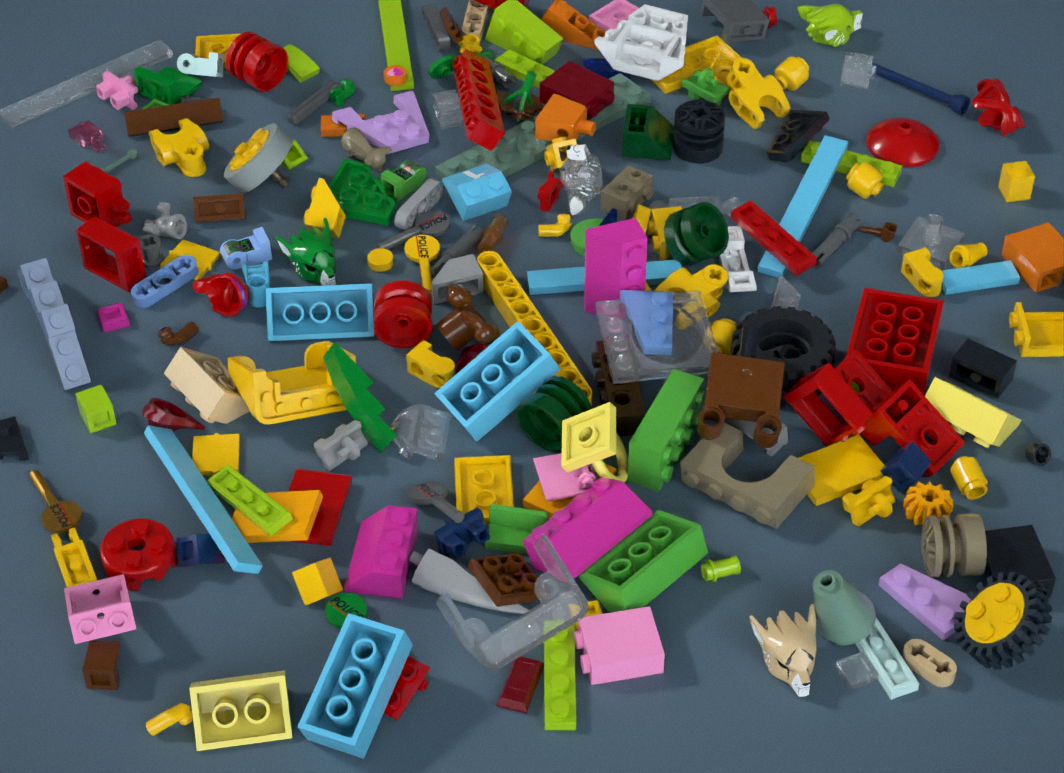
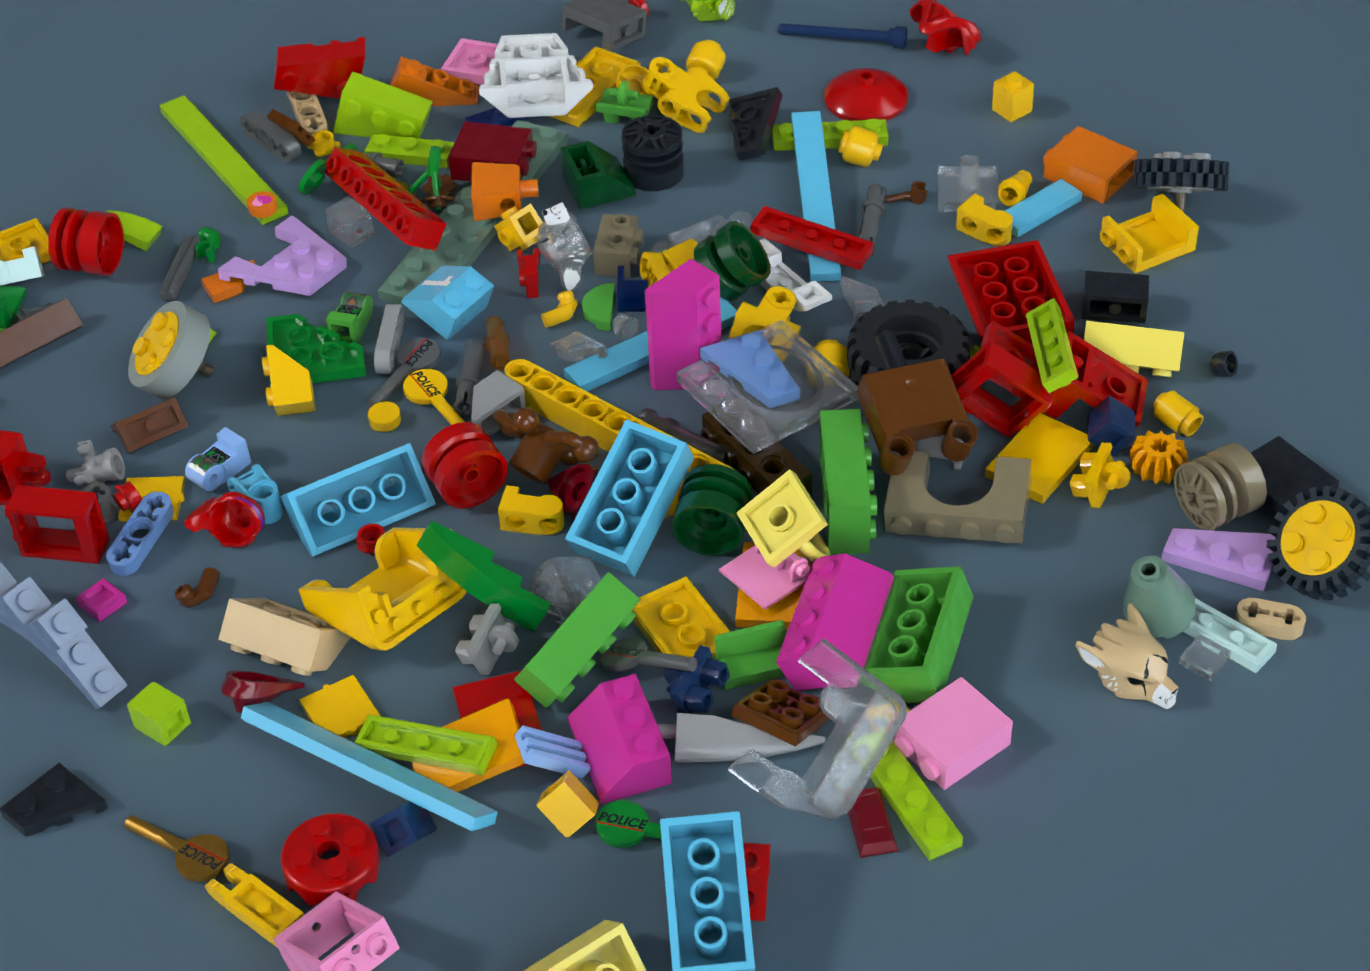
camera: 25 degrees left, 0 degrees up
(169, 251) = (127, 497): none -> red plate
(182, 148) = (59, 370): yellow piece -> none
(310, 338) = (368, 536): none -> red plate
(314, 250) = (306, 430): green piece -> none
(329, 537) = (551, 751): none -> light blue tile
(357, 146) = (272, 296): dark tan animal -> none
(396, 469) = (577, 640): none -> bright green brick
(546, 258) = (577, 345): none -> clear tile
(571, 346) = (672, 428): none -> clear smoke pin
(721, 568) = (990, 613): lime pin -> none
(858, 70) = (771, 35): clear brick -> none
(884, 385) = (1051, 346): none -> lime plate

